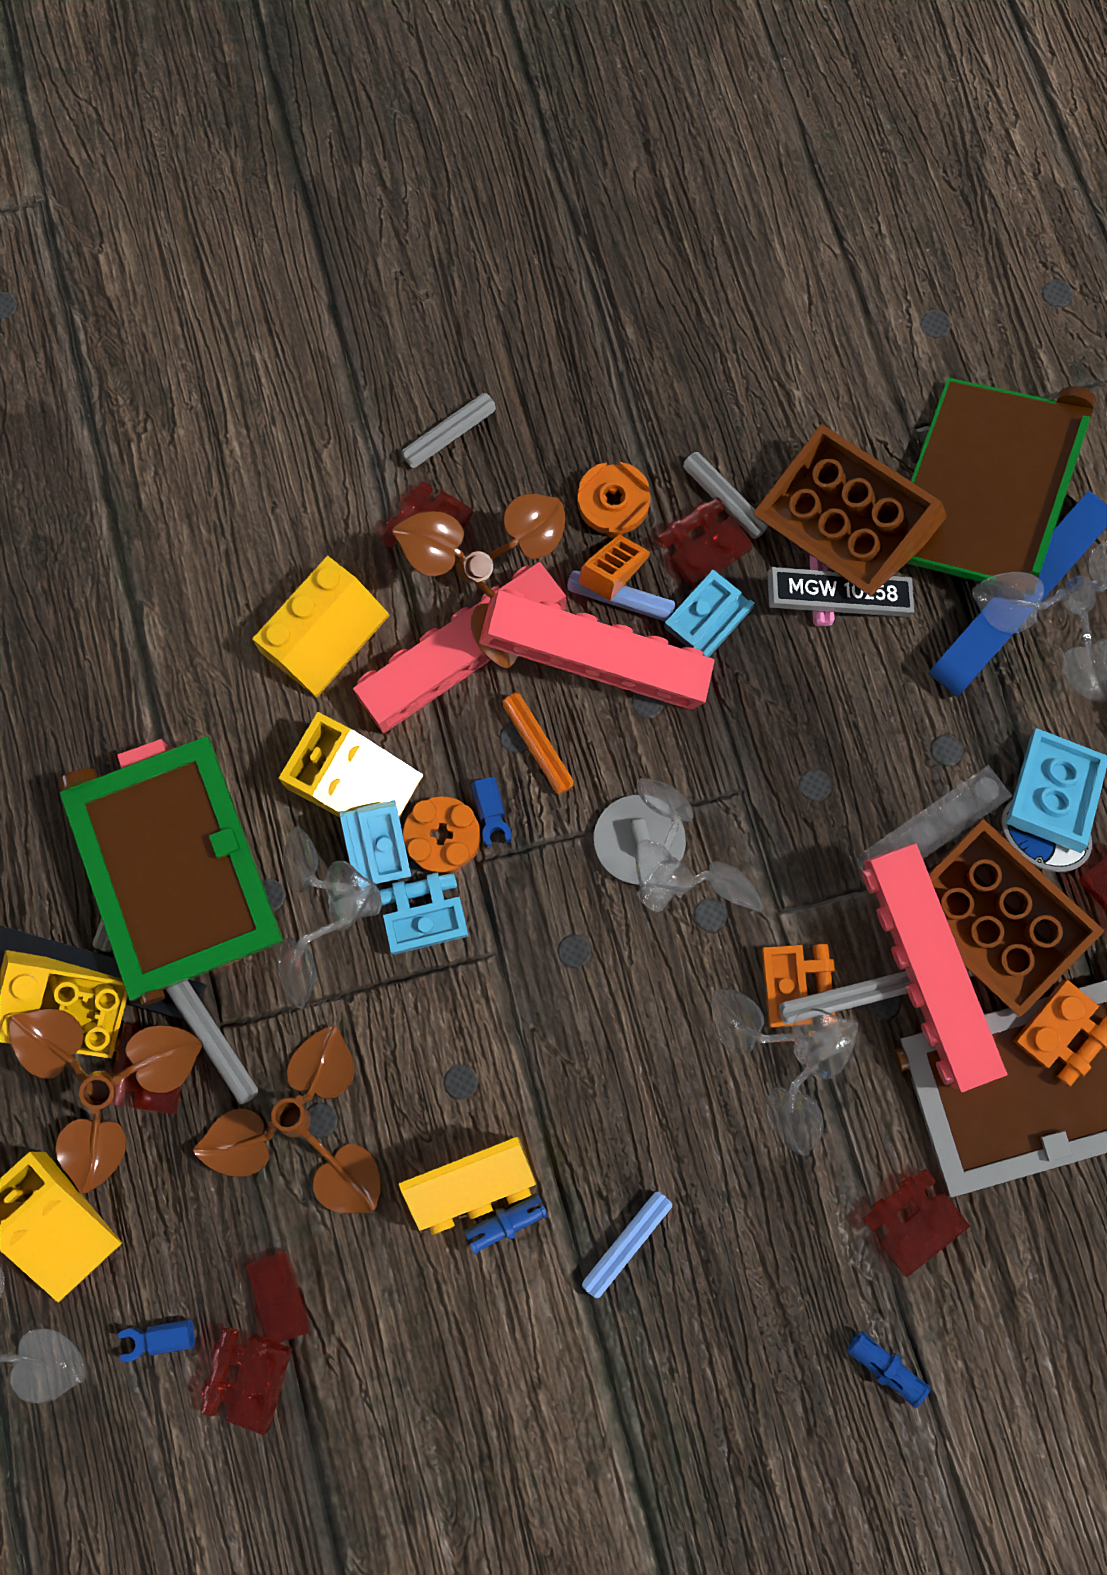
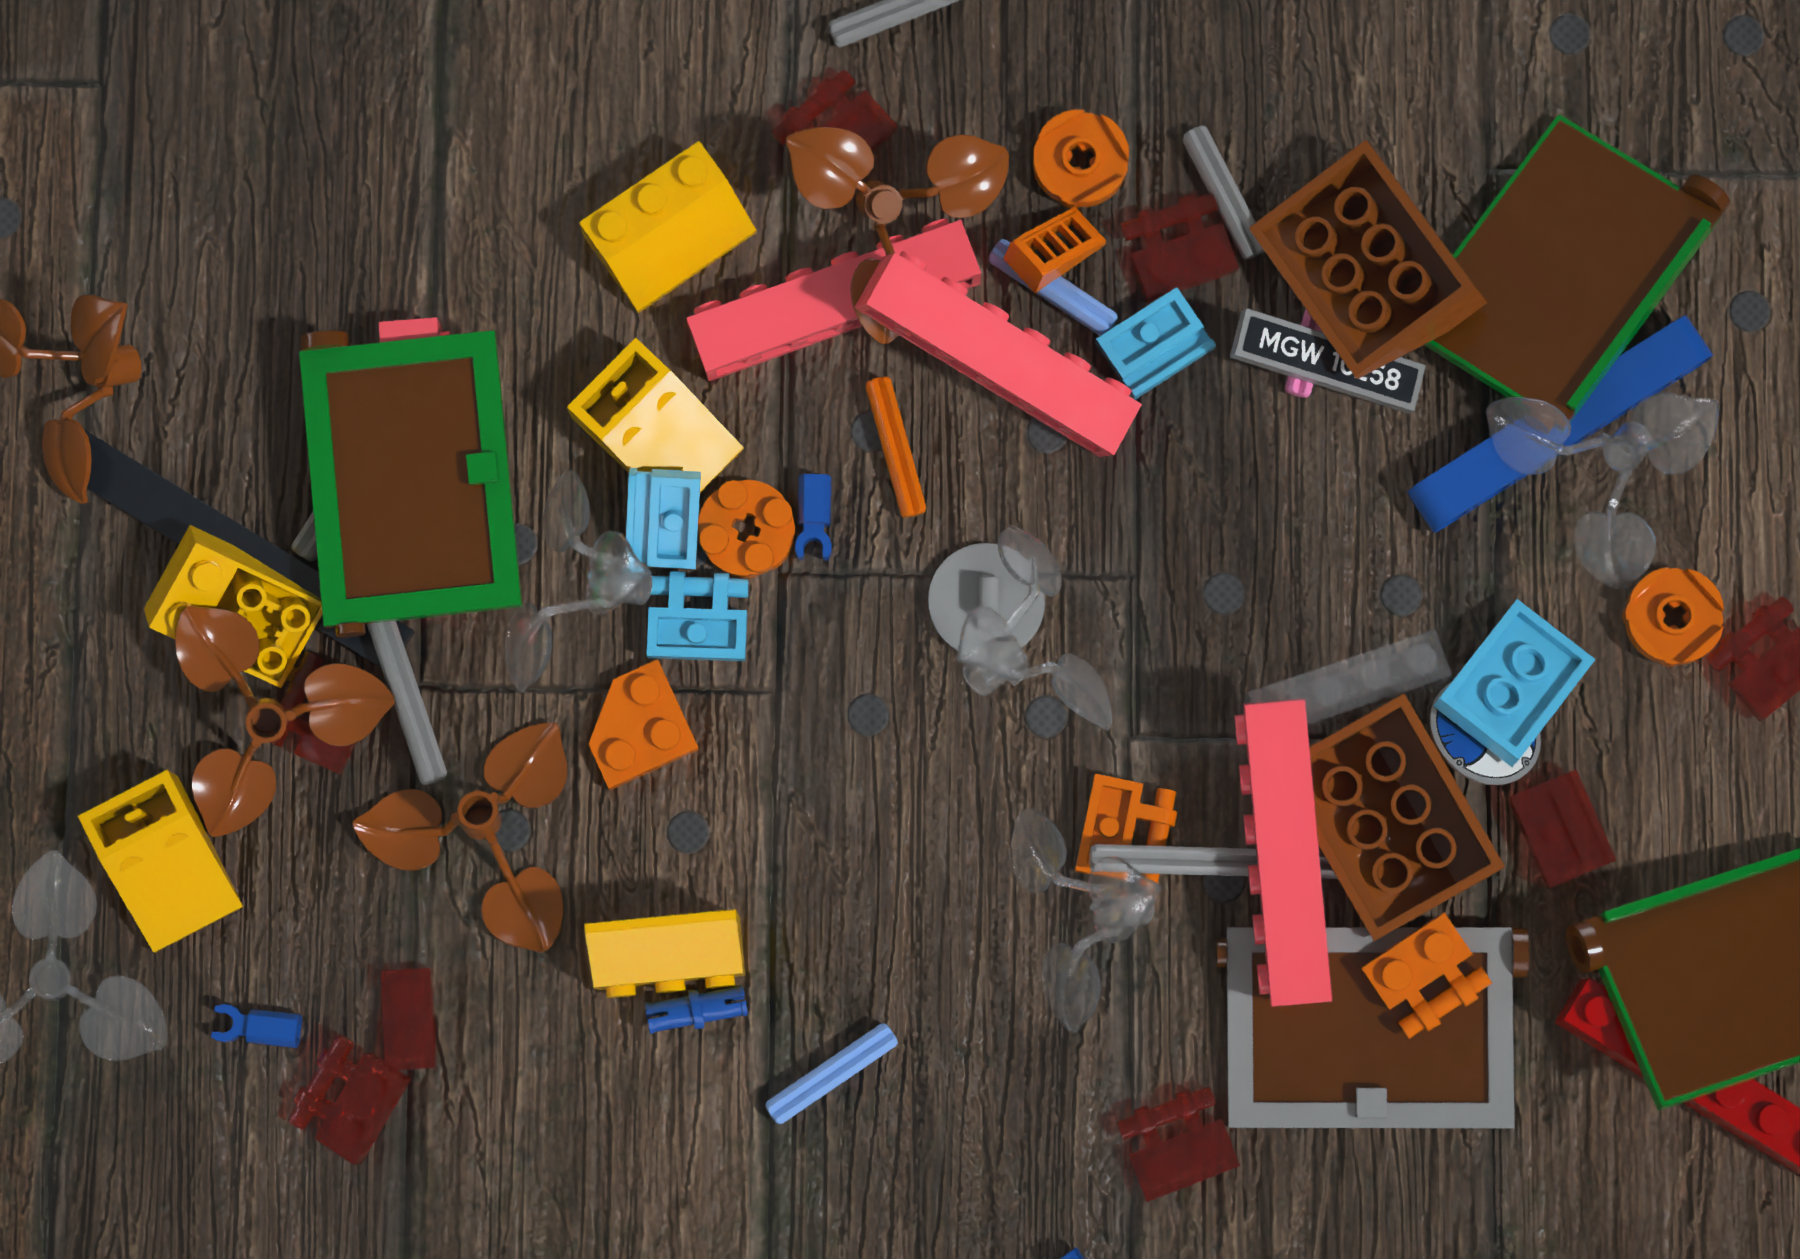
camera: 15 degrees right, 5 degrees up
(400, 1010) = (639, 727): none -> orange plate

